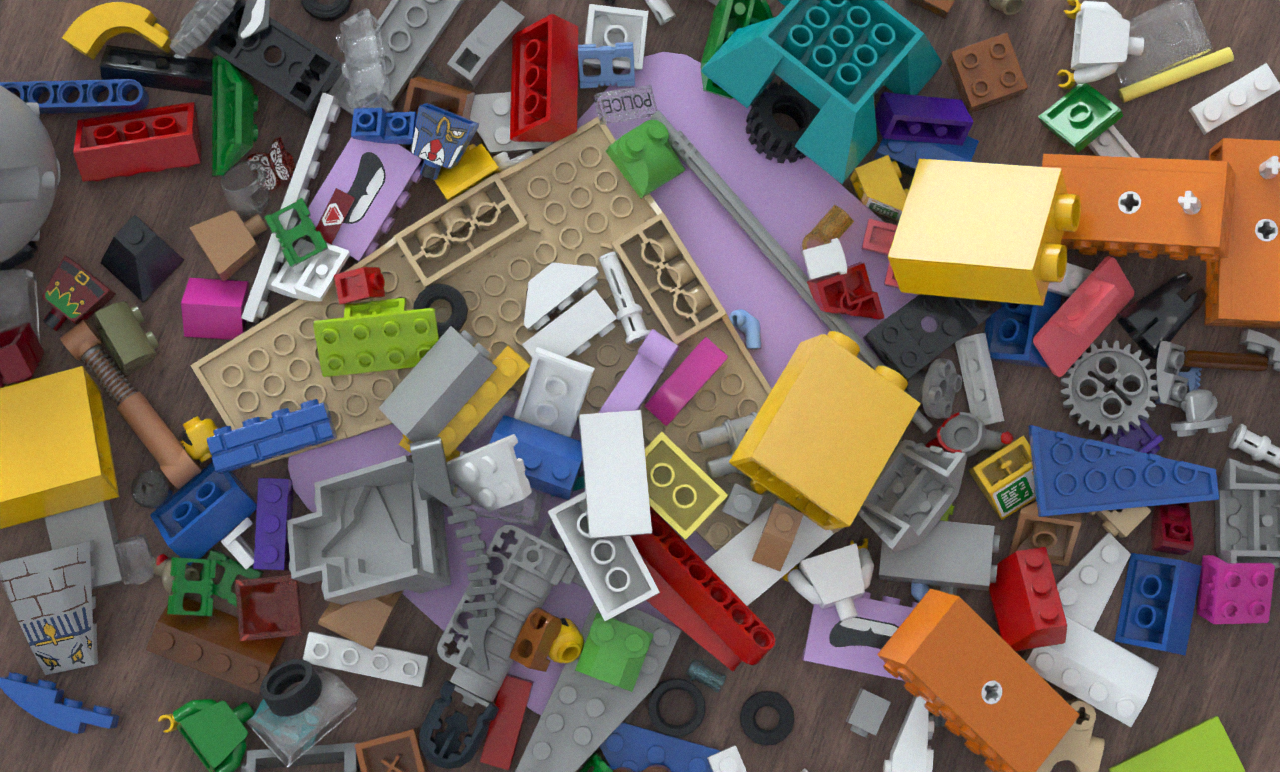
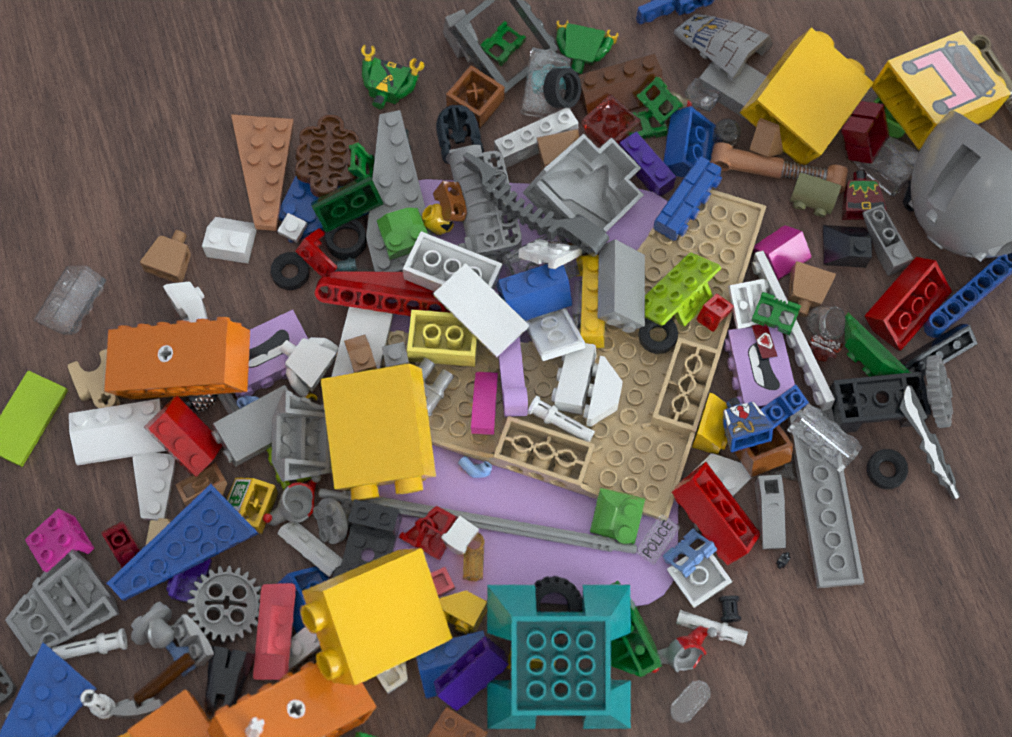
camera: 135 degrees right, 15 degrees down
(97, 223) = (887, 241): none -> light grey slope
(111, 19) = (992, 343): yellow arch -> none
(121, 439) = (767, 139): none -> medium nougat slope
(195, 438) = (730, 179): yellow head -> none
(238, 546) = (655, 140): white tile -> none
(504, 162) = (696, 451): white arm -> none
(506, 726) = (432, 161): red tile -> none
(649, 739) = (347, 203): none -> dark green slope
(733, 716) = (311, 253): none -> red bracket
(867, 713) = (234, 309): light grey brick -> none
(1158, 603) = (101, 499): blue slope -> none

